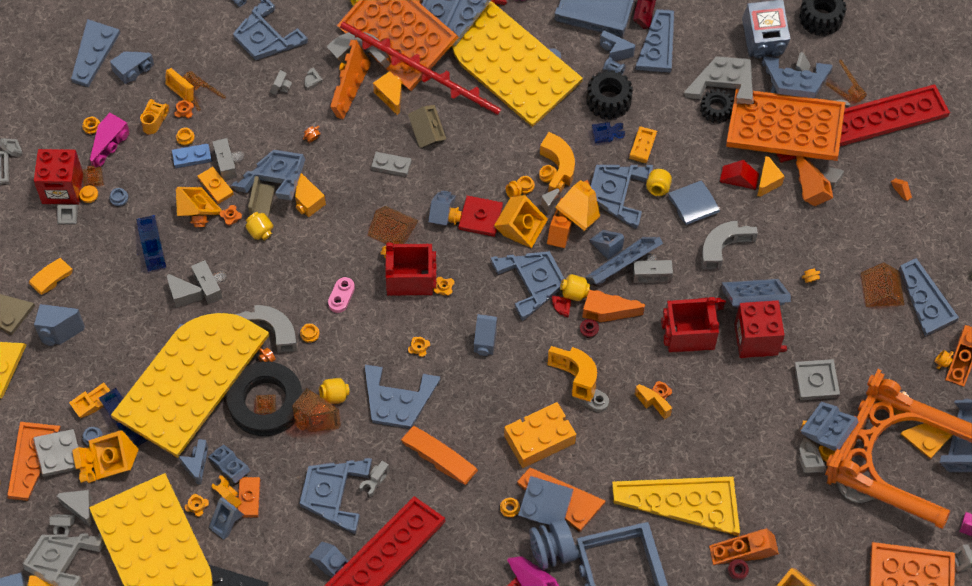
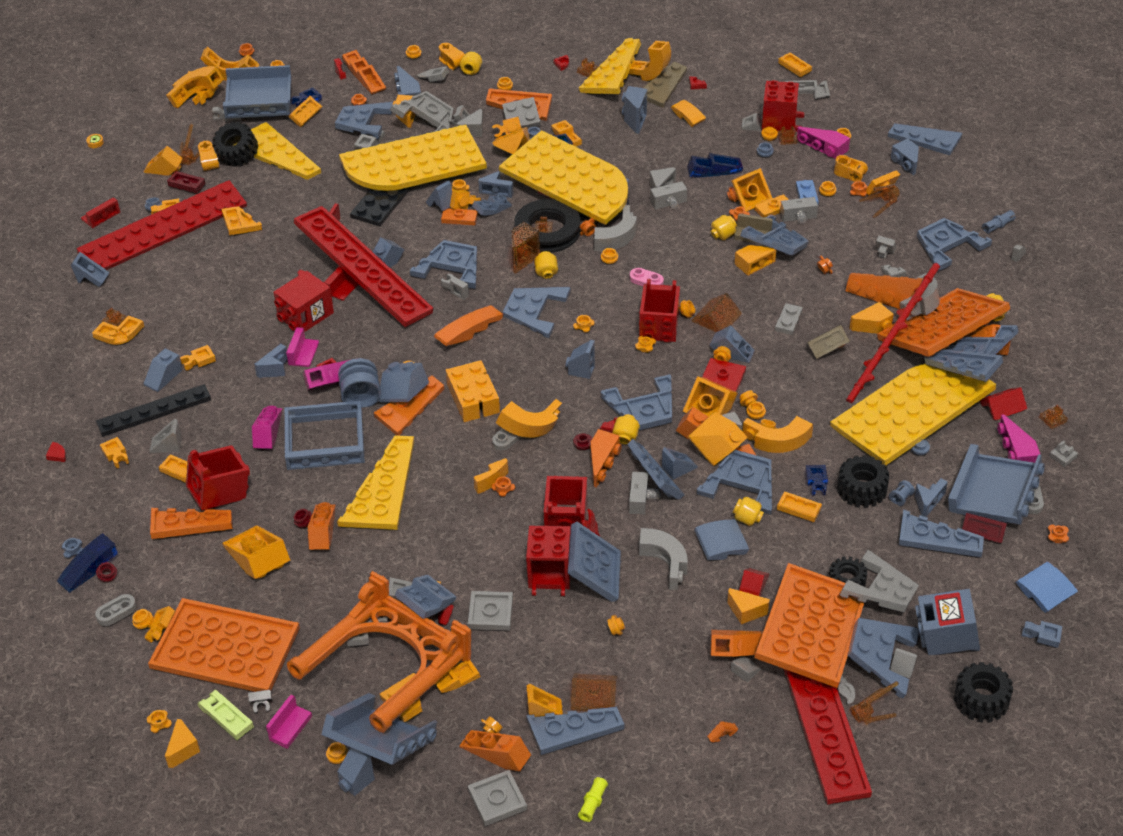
camera: 100 degrees right, 15 degrees down
(911, 324) = (542, 702): none -> light orange slope

